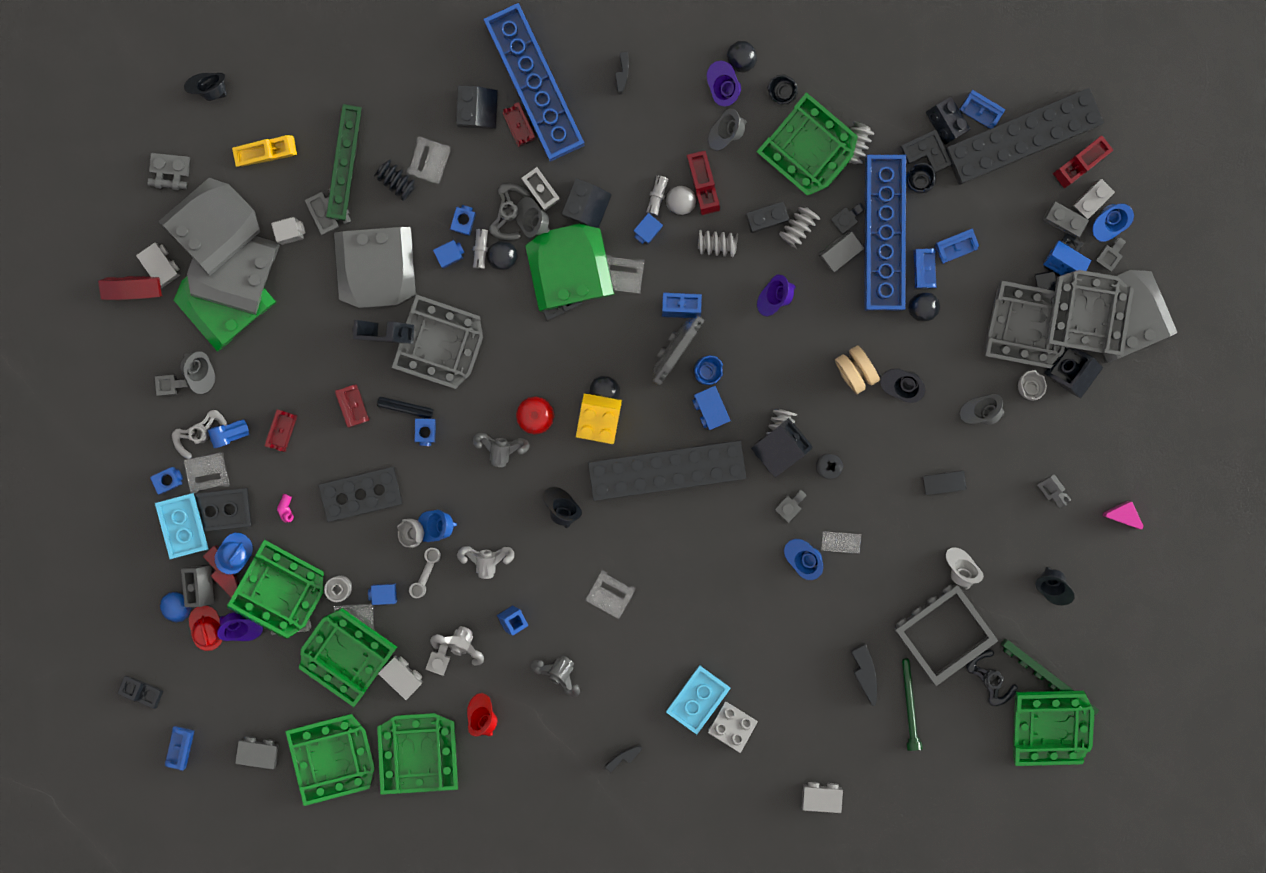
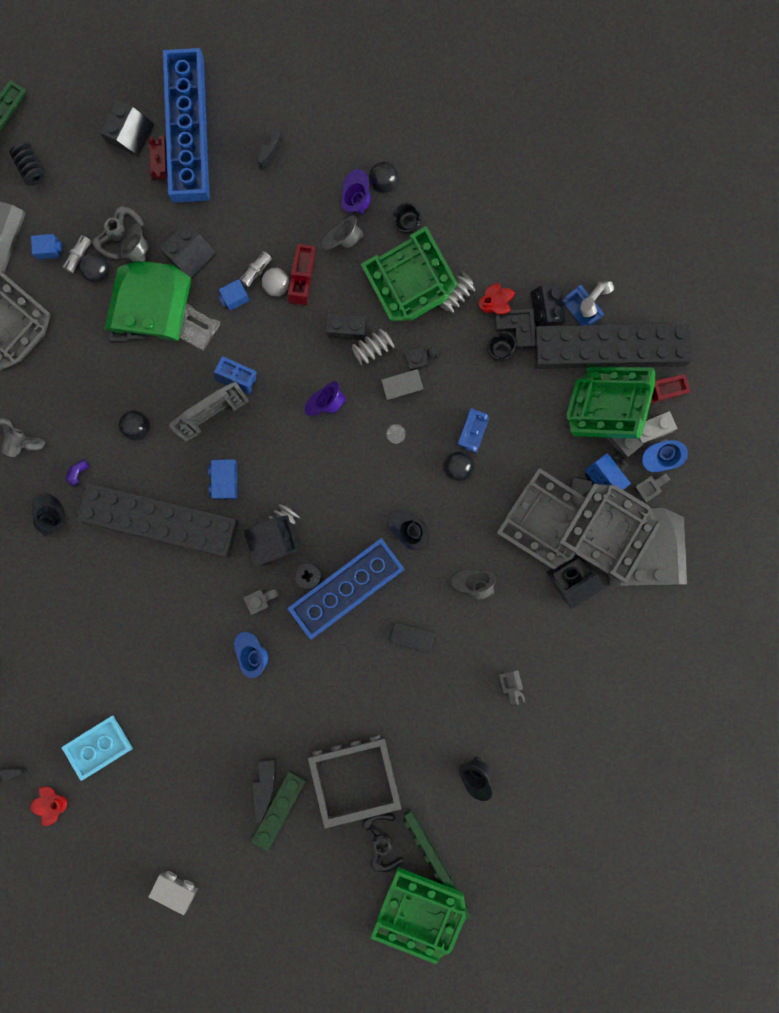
camera: 30 degrees right, 5 degrees down
(434, 163) = (70, 163): clear plate -> none
(463, 229) = (72, 230): blue brick -> none
(535, 415) = (61, 422): red cylinder -> none
(540, 189) = (151, 220): light grey brick -> none
(566, 456) = (74, 470): none -> dark purple arm
(598, 418) = (114, 446): yellow brick -> none
(607, 600) = (53, 619): clear plate -> none
(672, 771) = (45, 805): none -> red plate
(708, 370) = (235, 443): blue hair -> none
(717, 243) = (290, 333): light grey piece -> none
(732, 727) = (118, 788): light grey hinge -> none
(841, 542) = (292, 653): clear plate -> none
(854, 300) = (396, 434): none -> clear plate
(857, 369) = (369, 497): tan wheel -> none
(868, 463) = (346, 589): none -> blue brick
(885, 232) = (448, 382): blue brick -> none
(886, 688) = (278, 811): none -> dark green plate
(900, 132) = (496, 299): none -> red plate
(913, 742) = (283, 874): dark green piece -> none
(957, 246) = (510, 421): blue hinge -> none
(964, 569) = (397, 724): light grey piece -> none
(988, 109) = (588, 305): none -> light grey bar
(1032, 385) = (530, 578): light grey hair -> none
(1044, 192) = (611, 402): none -> green wedge
(1125, 514) = (571, 736): dark pink slope -> none

